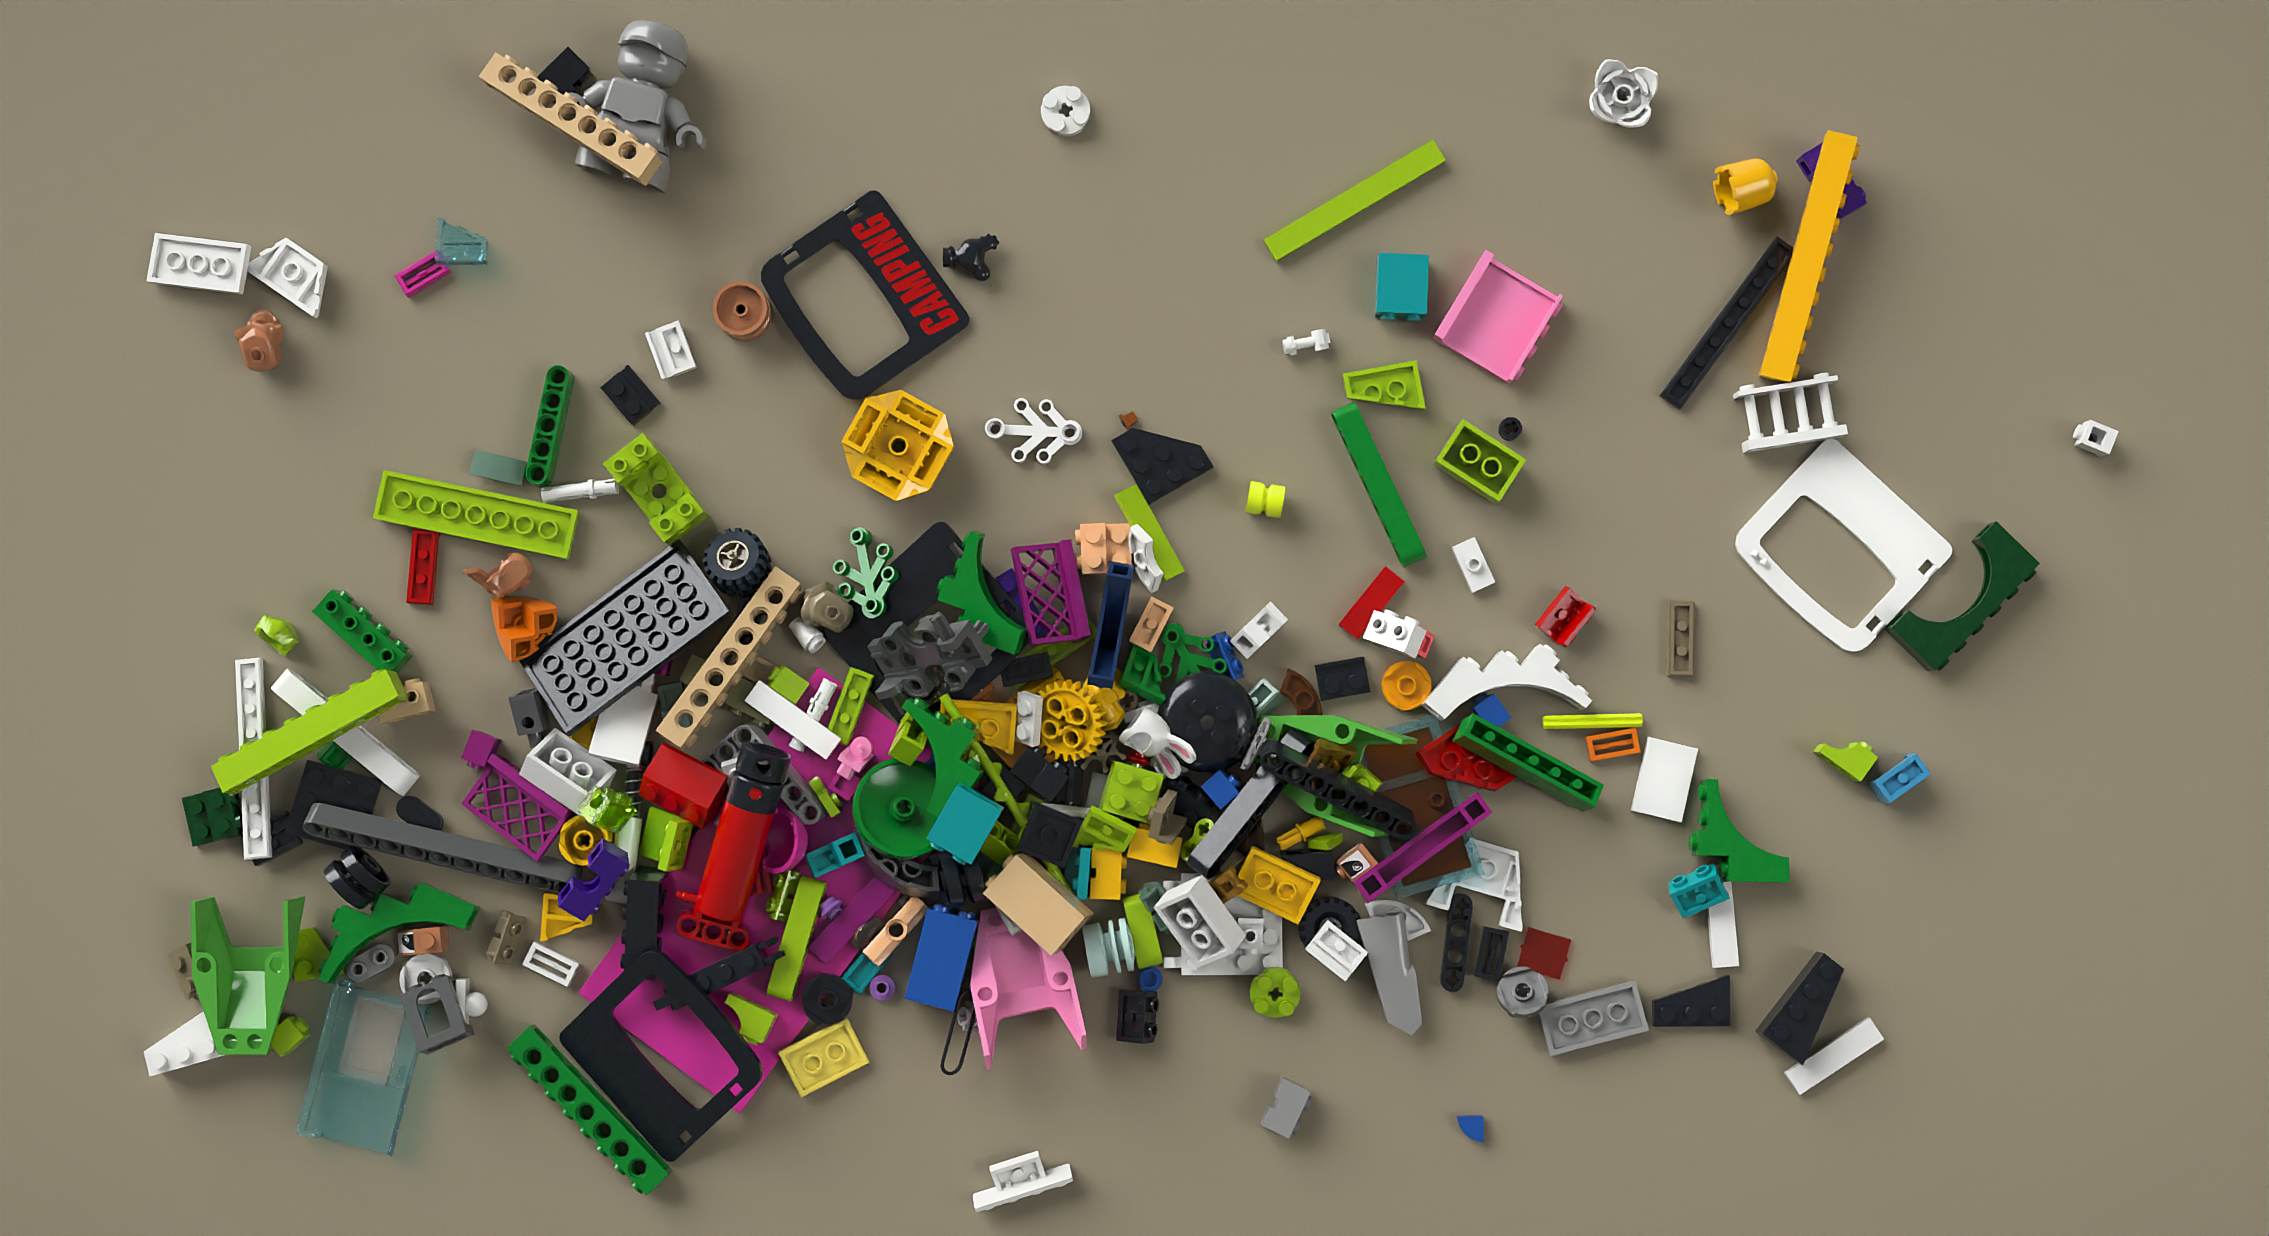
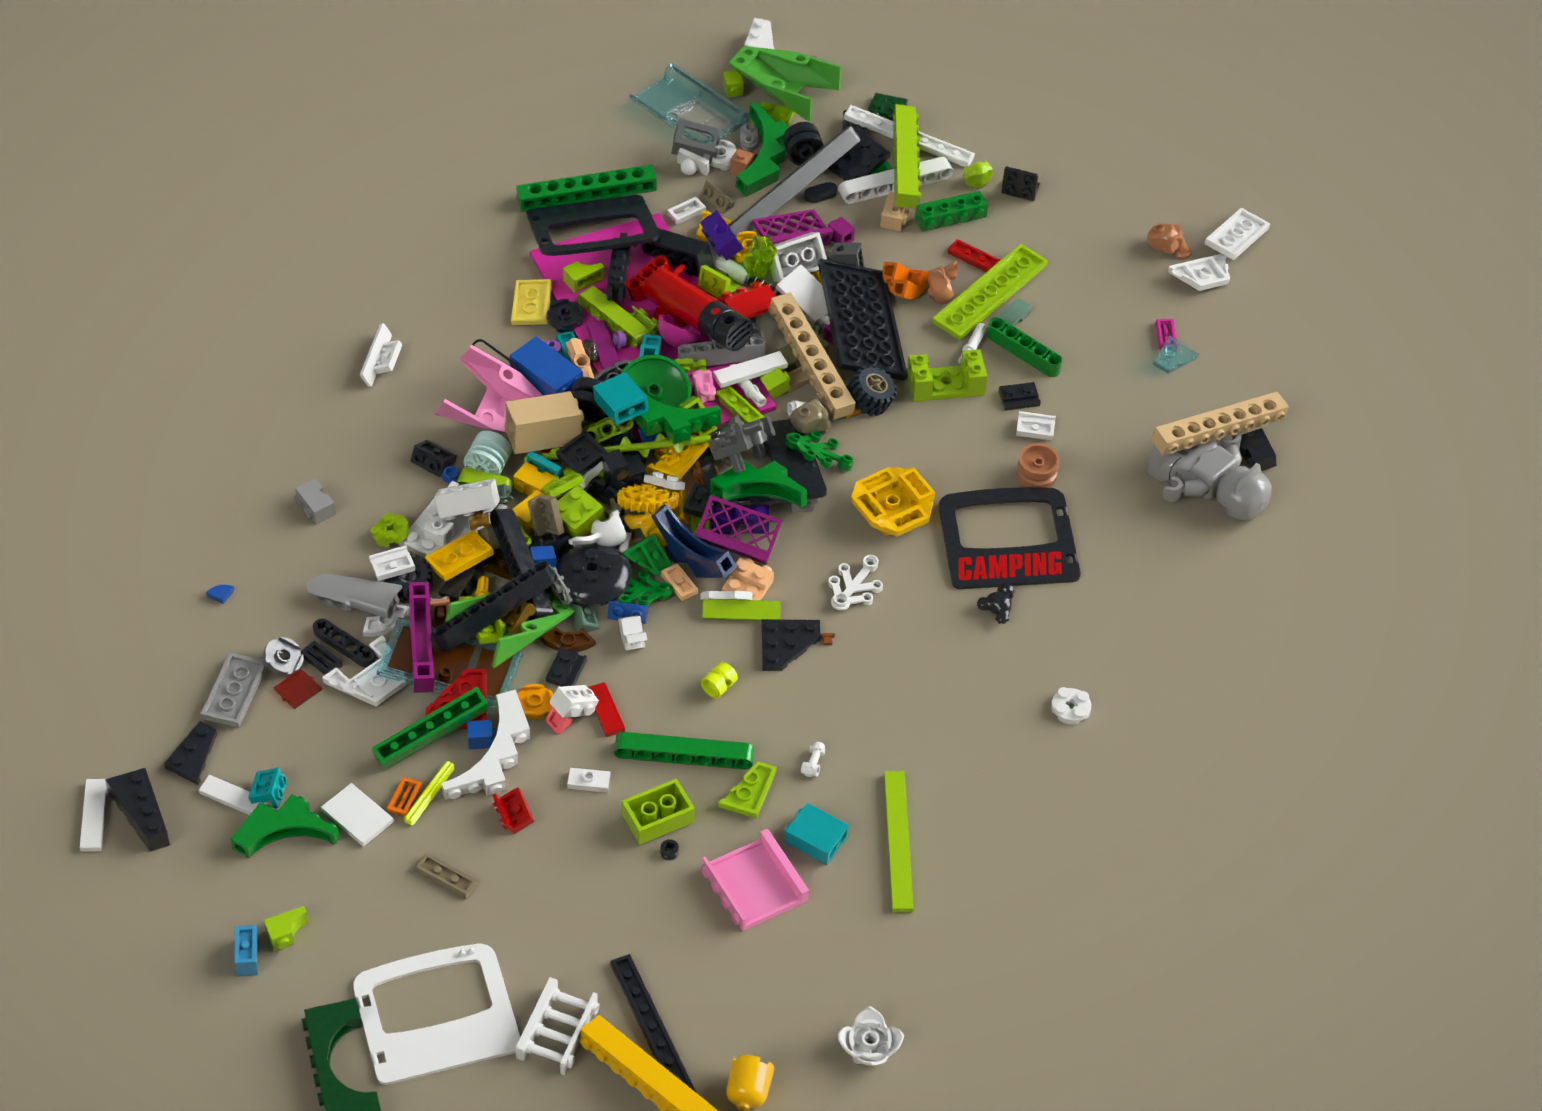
camera: 110 degrees right, 35 degrees down
(264, 571) = (1020, 183): none -> black bracket

